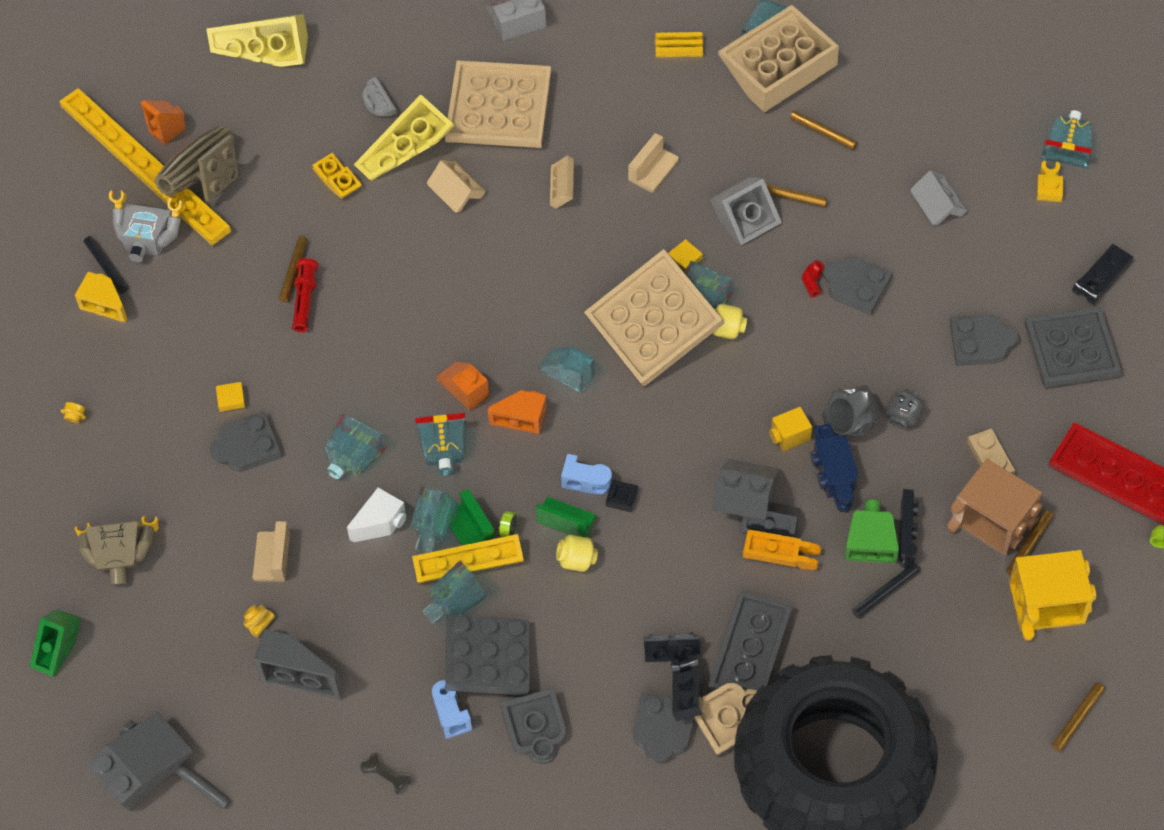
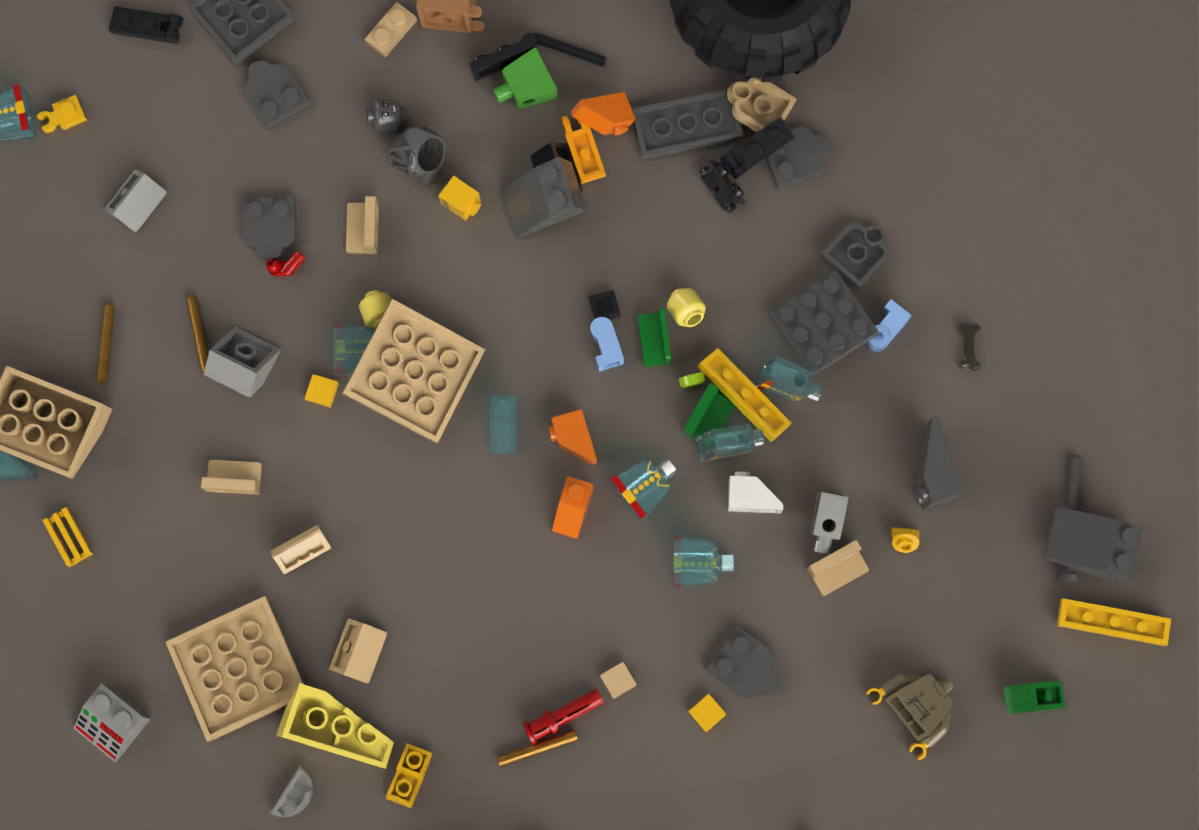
camera: 120 degrees left, 20 degrees up
(65, 744) = (1113, 622): none -> yellow plate
(302, 348) = (618, 680): none -> tan tile
(317, 562) = (828, 507): none -> light grey torso
(797, 579) = (605, 113): none -> orange slope
(811, 349) = (362, 227): none -> tan panel
(835, 466) = (476, 143): dark blue hinge -> none

